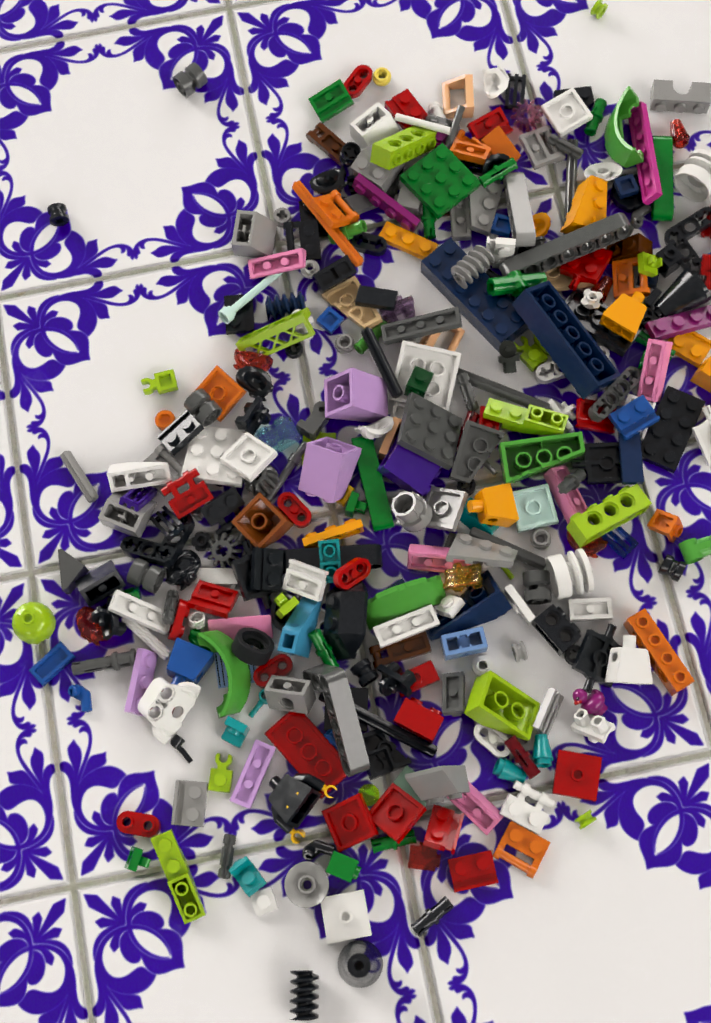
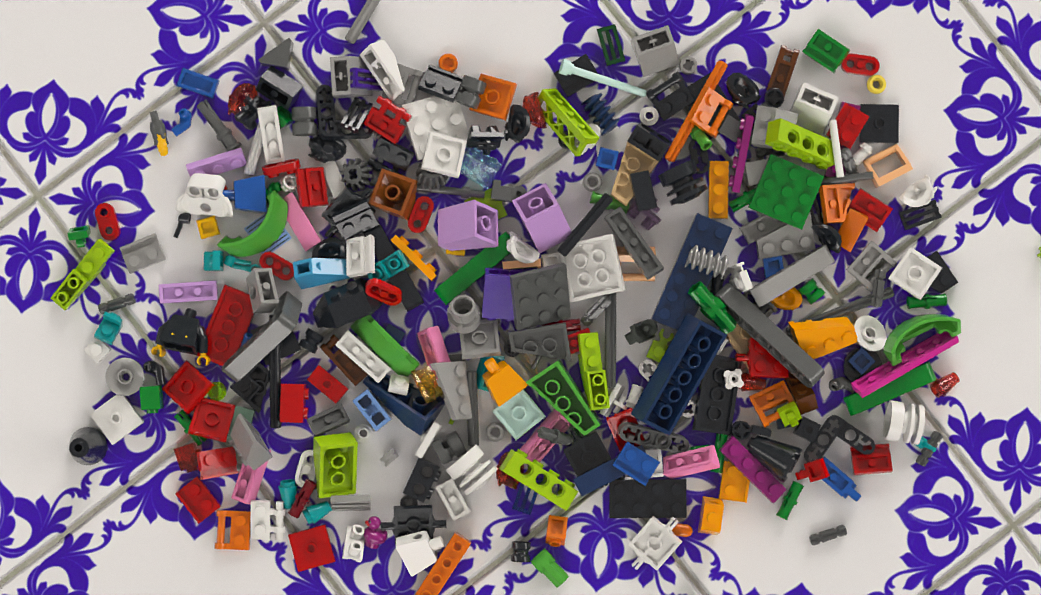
camera: 60 degrees right, 15 degrees up
(33, 622) = (222, 49): lime cylinder -> none
(77, 725) = (159, 133): none -> dark grey piece
(163, 382) = (480, 43): lime plate -> none
(170, 607) = (287, 156): dark grey axle -> none
(196, 541) = (360, 146): black plate -> none
(198, 723) = (208, 227): none -> yellow tile
(221, 778) = (174, 267): lime plate -> none
(227, 280) = (617, 40): none -> dark green tile
(242, 715) = (230, 260): none -> teal hand
(249, 654) = (297, 240): black tyre -> none
(277, 263) = (636, 86): bright pink slope -> none
(285, 605) = (331, 252): lime tile -> none
(304, 995) = (44, 416): black piece -> none
(322, 648) = (313, 298): green pin -> none
(355, 505) = (448, 263): green tile -> none
(386, 262) = (682, 182): none -> black wheel
(393, 681) = (312, 367): black hips -> none
(418, 382) = (580, 266): dark green bracket -> none
(421, 86) = (881, 125): none -> black plate
(432, 916) = (148, 484): black pin -> none
(509, 166) = (819, 240): green pin -> none
(521, 121) = (901, 235): clear pink gear -> none
(541, 203) = (811, 286): none -> green wheel
(565, 395) = (634, 396): none -> white pin
(585, 819) = (279, 569): lime bush -> none
(625, 315) = (729, 416): light orange torso -> none
(665, 98) = (976, 355): light grey arch -> none

